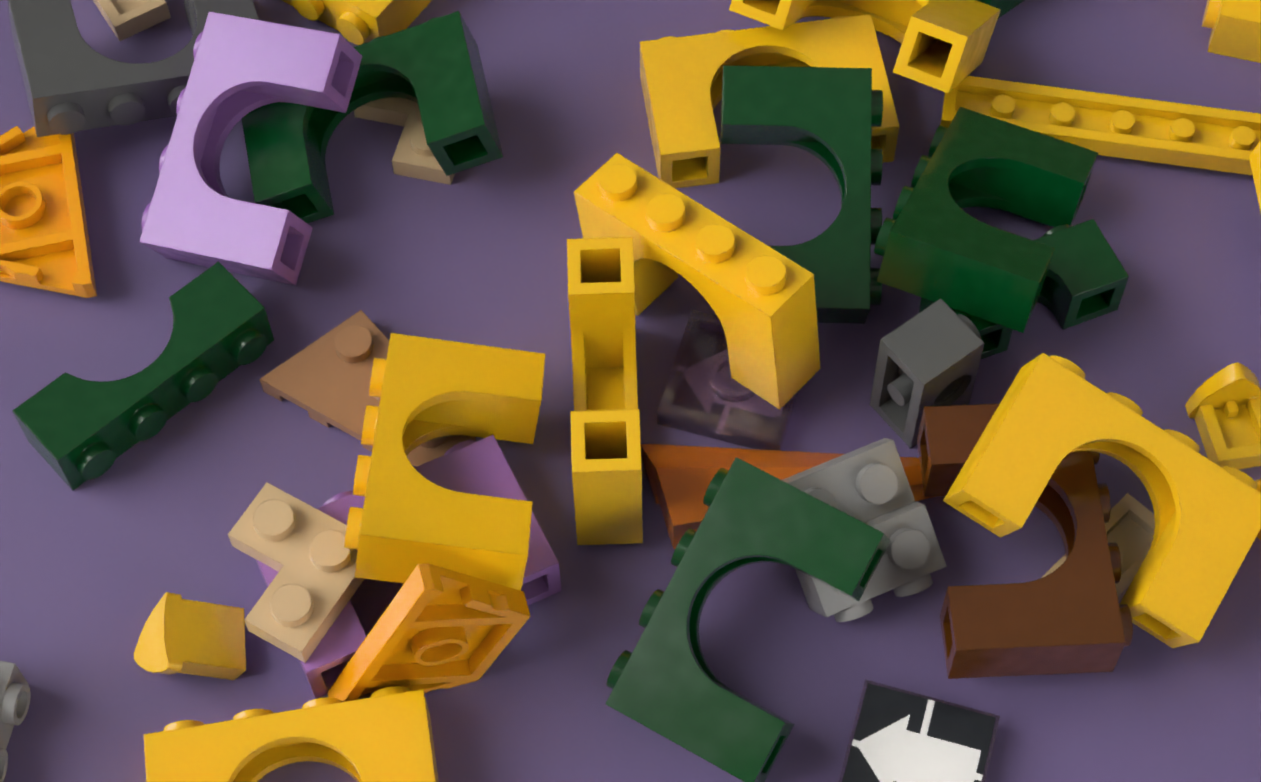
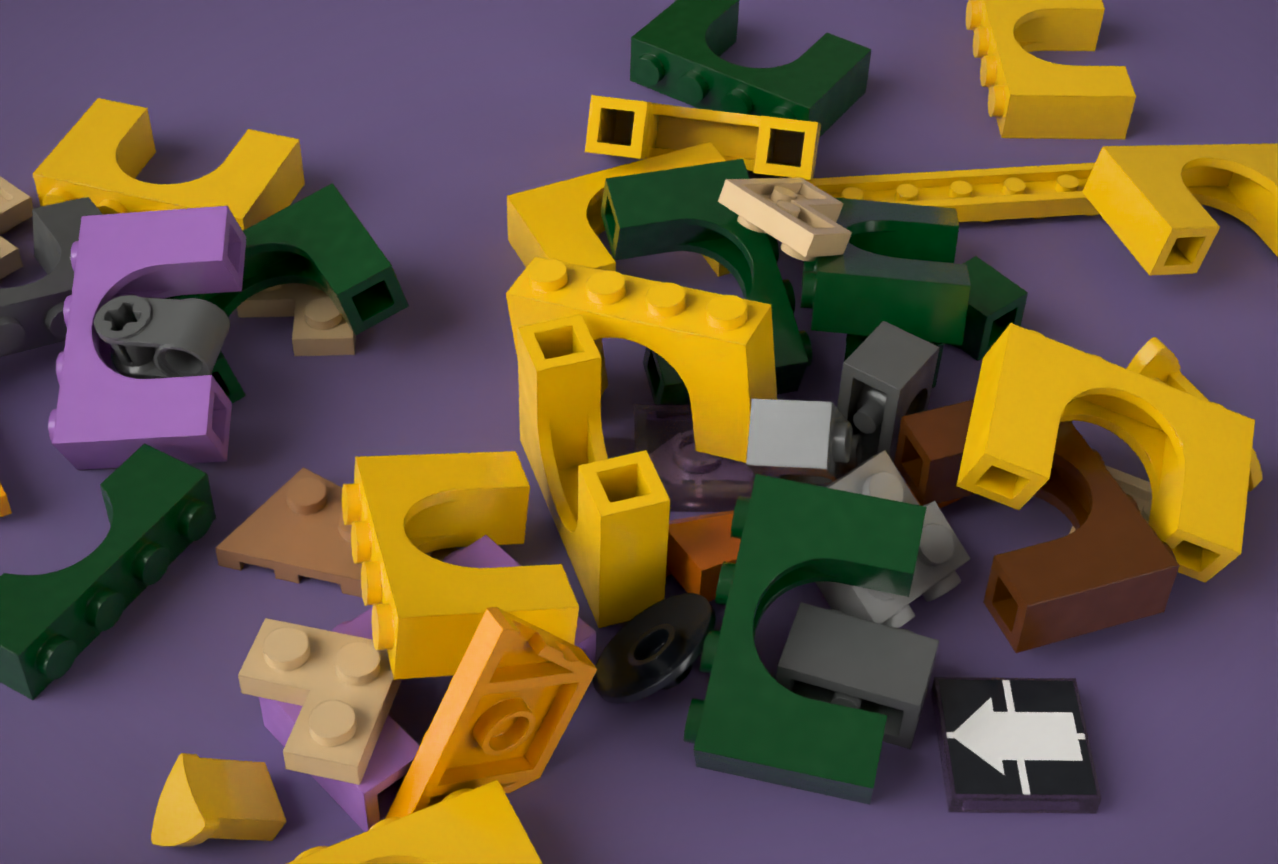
camera: 20 degrees left, 15 degrees down
(257, 155) = (162, 335): none -> dark grey piece
(611, 587) = (654, 649): none -> black dish
(790, 658) = (859, 667): none -> dark grey brick
(819, 410) = (801, 441): none -> brick
(889, 147) = (790, 212): none -> tan plate

